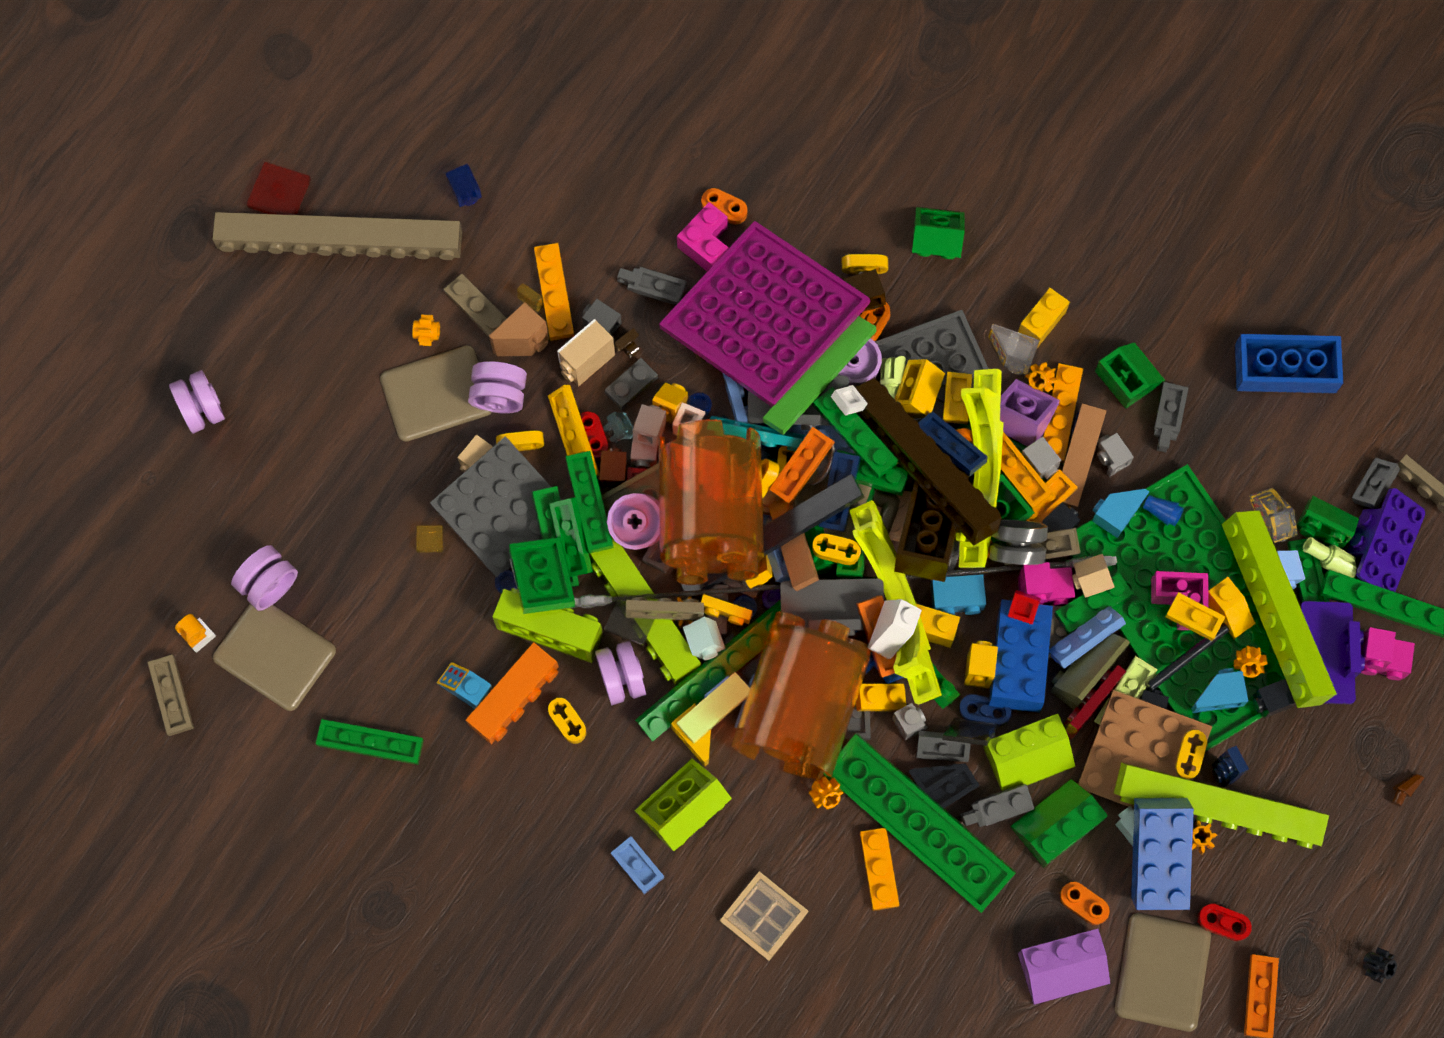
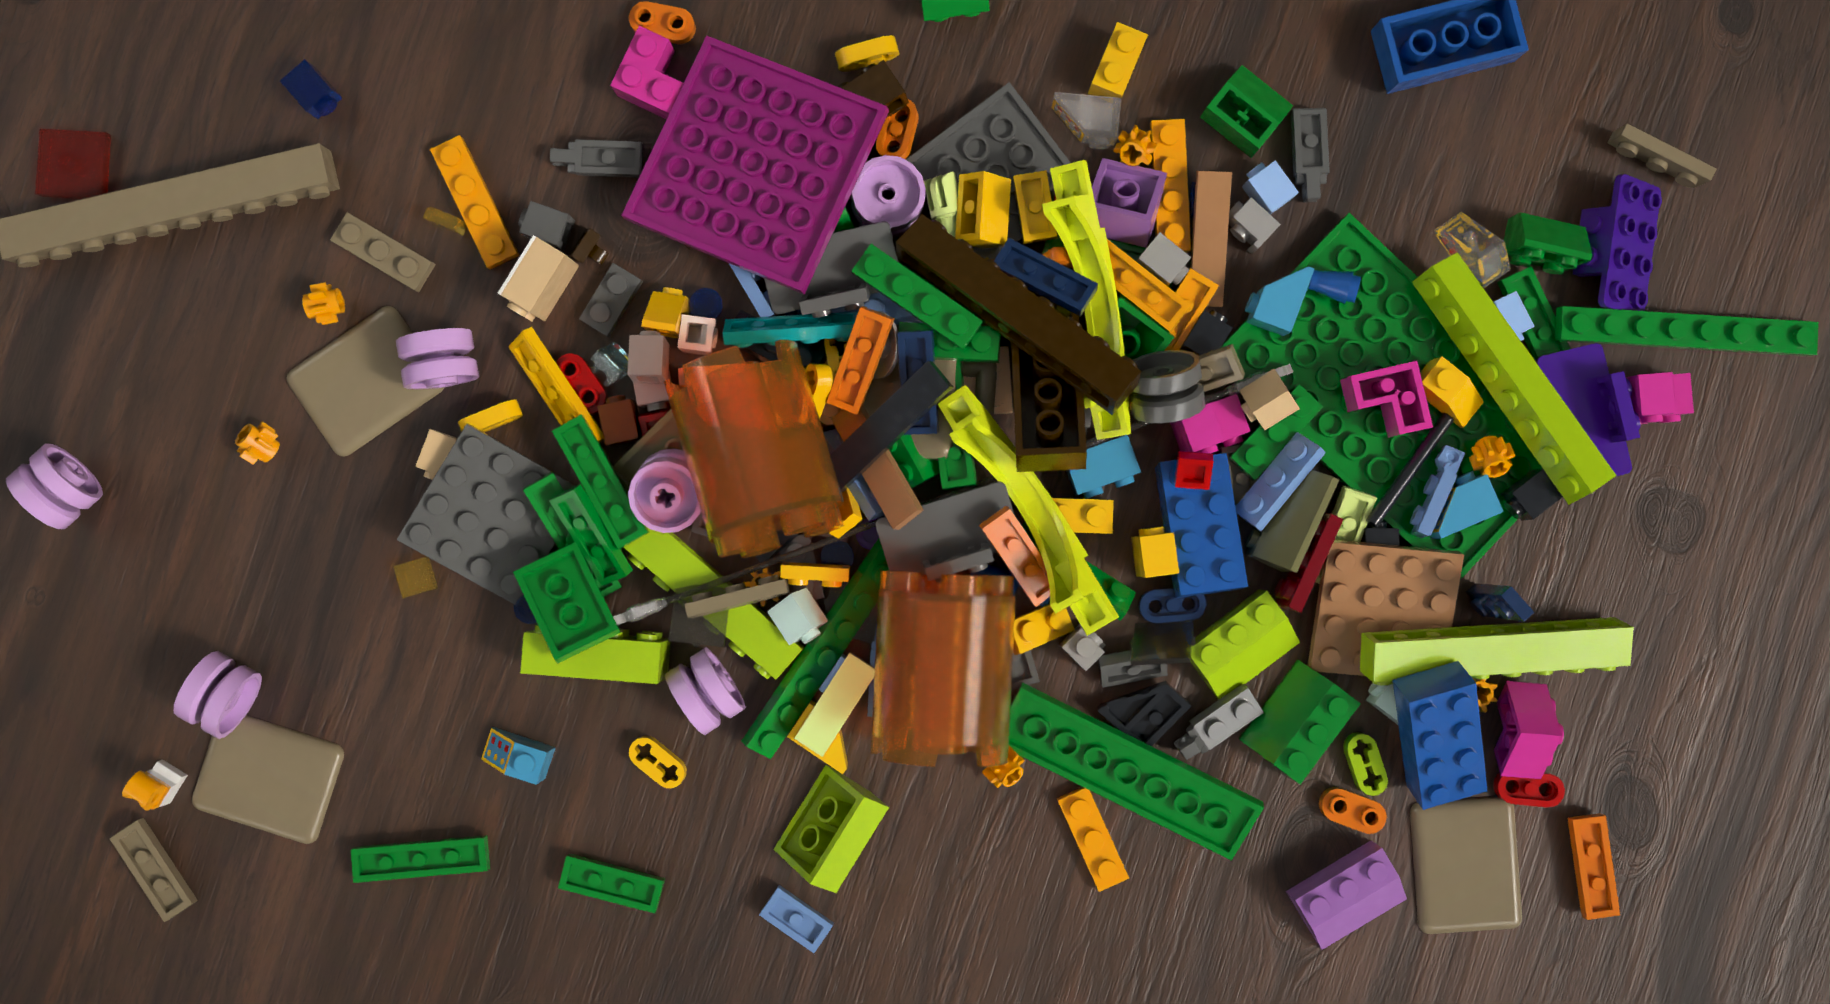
camera: 15 degrees left, 15 degrees up
(347, 412) = (257, 443): none -> light orange gear
(506, 799) = (611, 883): none -> green plate
(512, 693) = (579, 749): orange brick -> none
(520, 334) = (445, 277): medium nougat slope -> none
(764, 916) = (968, 935): clear piece -> none
(819, 376) = (849, 232): bright green tile -> none
(834, 554) = (934, 451): yellow beam -> none
(849, 400) = (898, 258): white plate -> none
(894, 627) = (1036, 547): white slope -> none
(1109, 870) = (1373, 762): none -> lime beam
(1133, 431) = (1269, 186): none -> light blue brick
(1195, 616) = (1416, 425): yellow plate -> none
(1197, 755) = (1438, 599): yellow beam -> none
(1203, 675) = (1437, 490): none -> medium blue hinge
(1231, 874) = (1529, 730): none -> dark pink brick
(1331, 557) = (1561, 288): yellowish green arm -> none
(1375, 483) = (1593, 171): dark grey plate -> none
(1379, 965) = (1729, 790): black gear -> none
(1406, 788) = (1712, 557): reddish brown bar -> none

